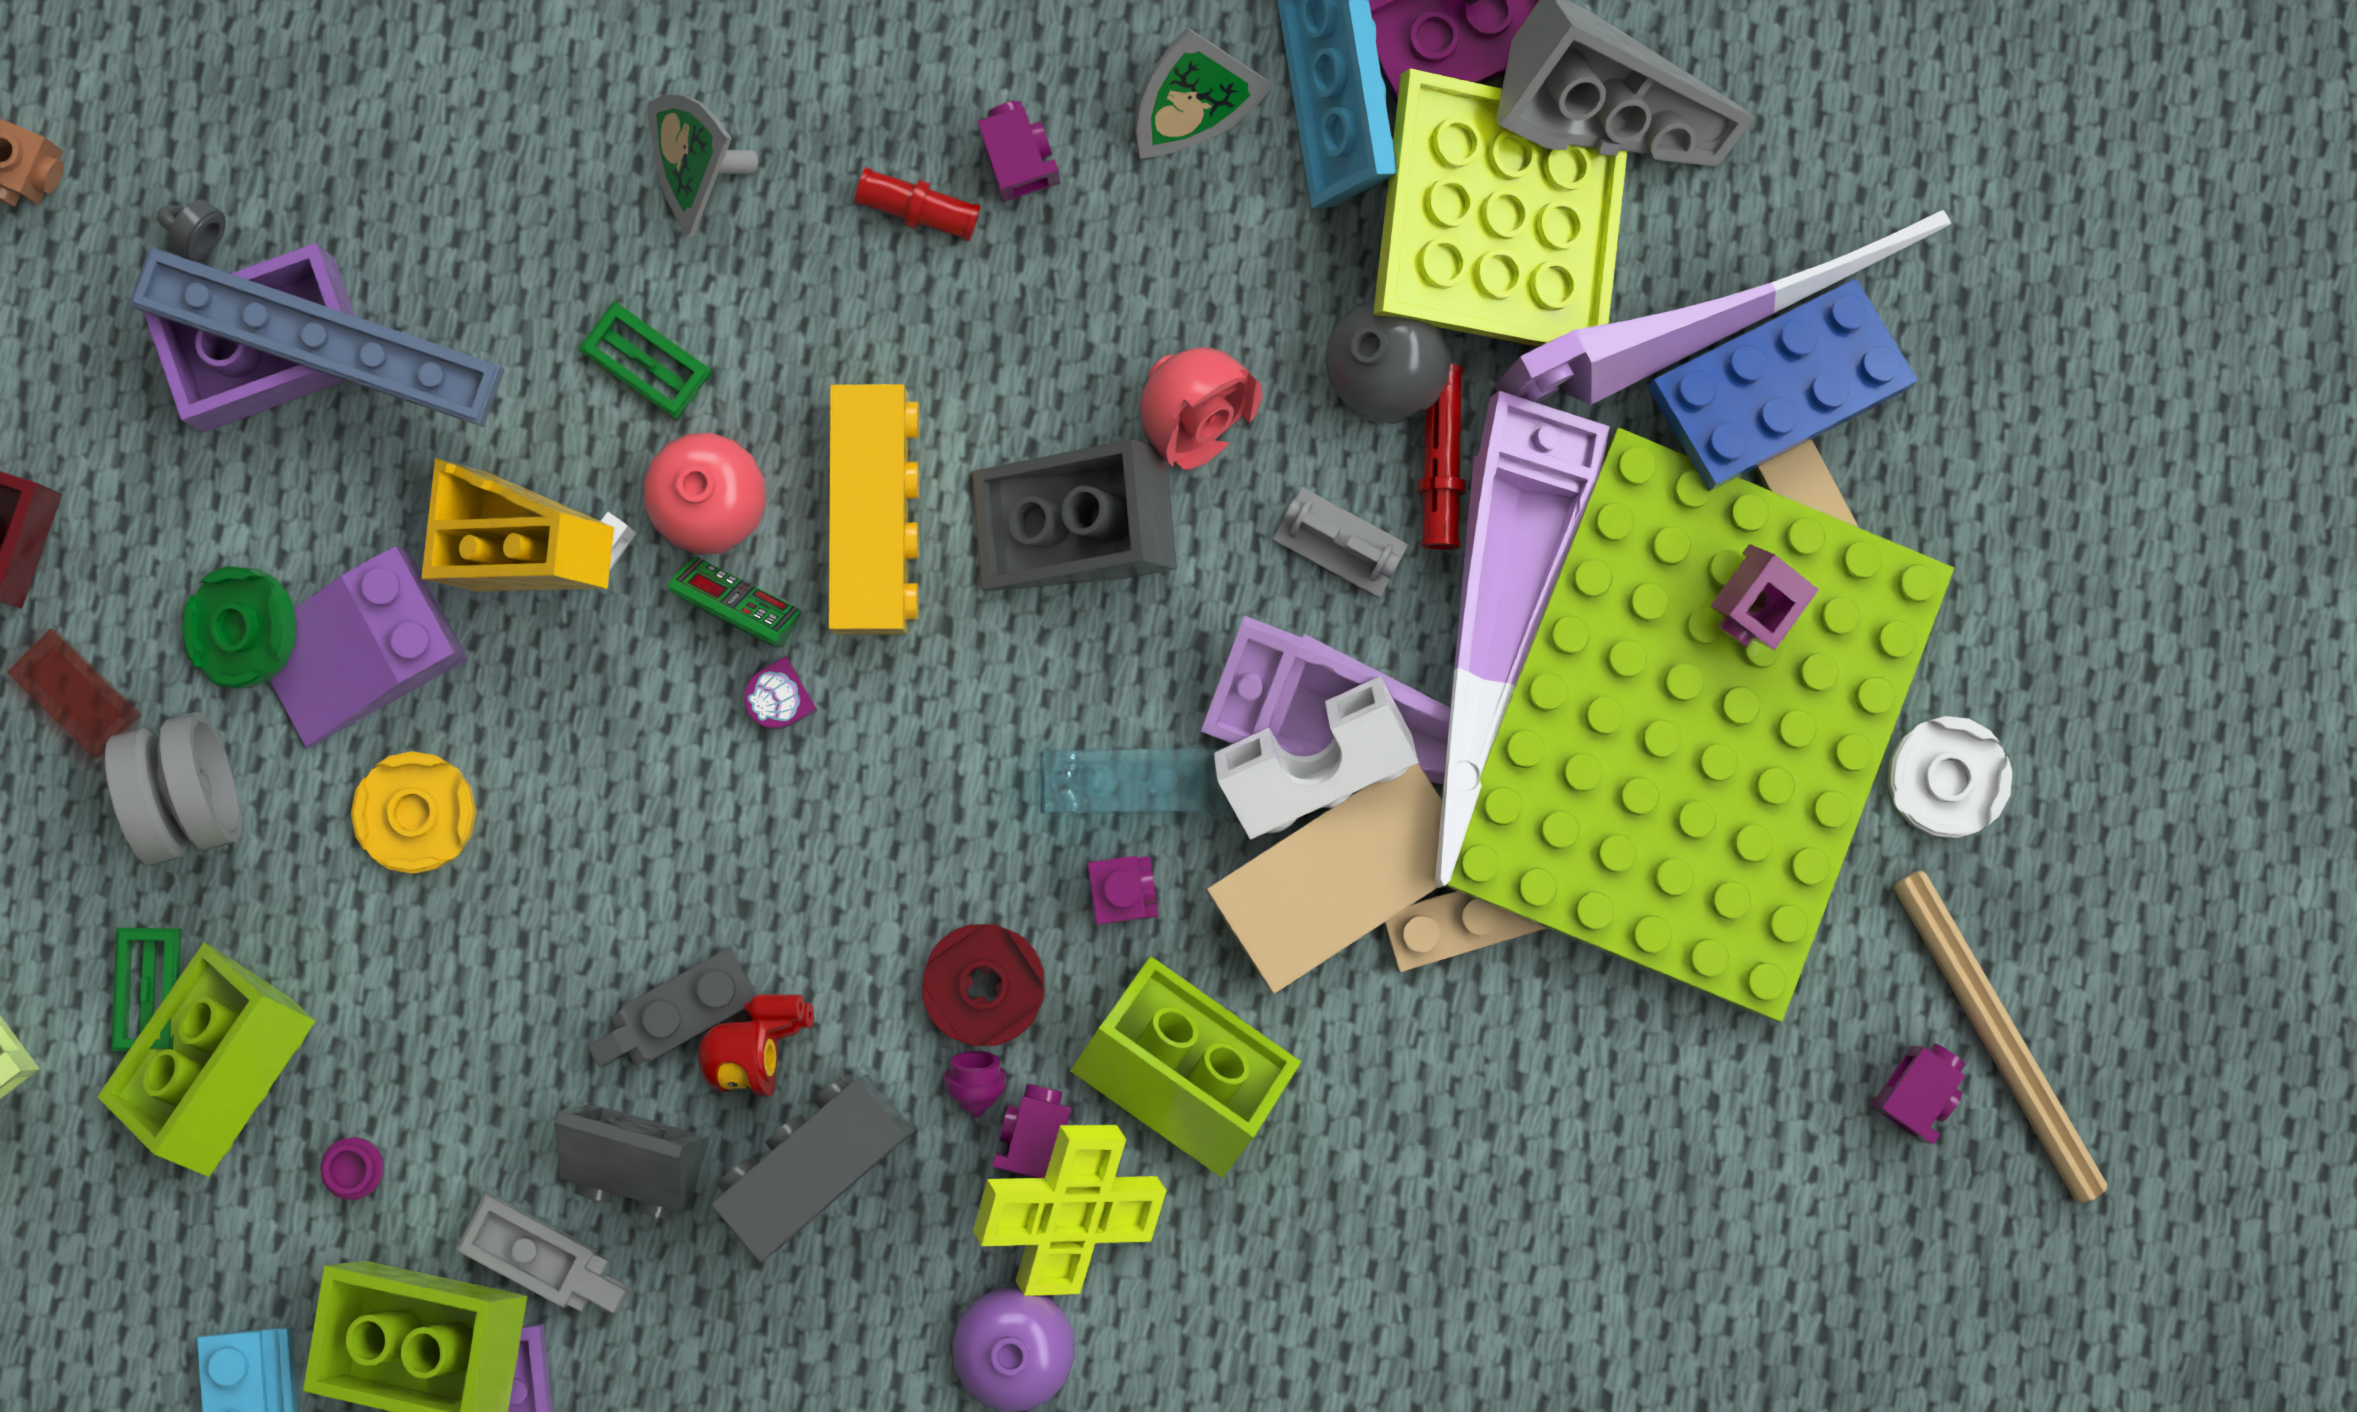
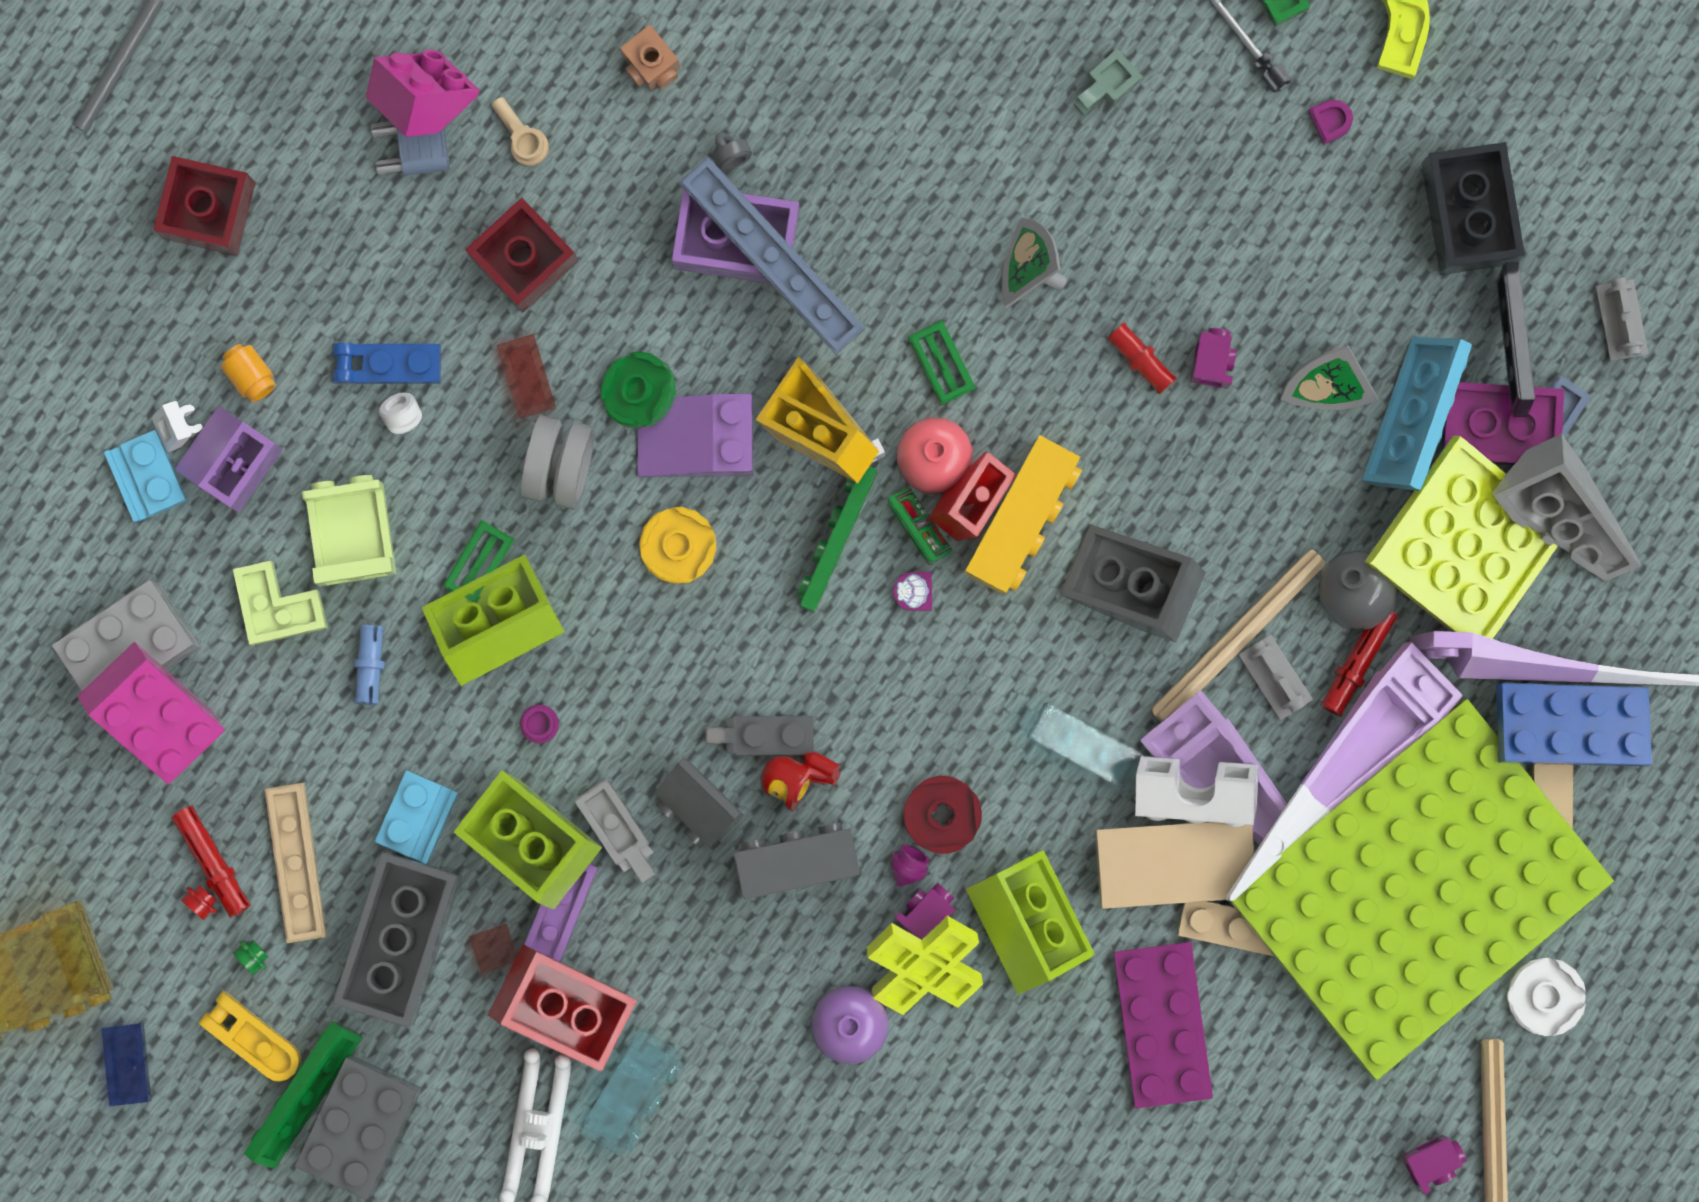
camera: 30 degrees right, 0 degrees up
(65, 1218) = (369, 665): none -> medium blue pin
(629, 708) = (829, 552): none -> green plate
(786, 522) = (973, 498): none -> red slope
(1123, 889) = (1048, 804): magenta brick -> none
(1193, 402) = (1235, 554): coral cylinder -> none
(1259, 508) = (1240, 634): none -> tan axle
(1447, 1107) = (1162, 1025): none -> magenta plate
(1779, 597) = (1504, 845): brick -> none

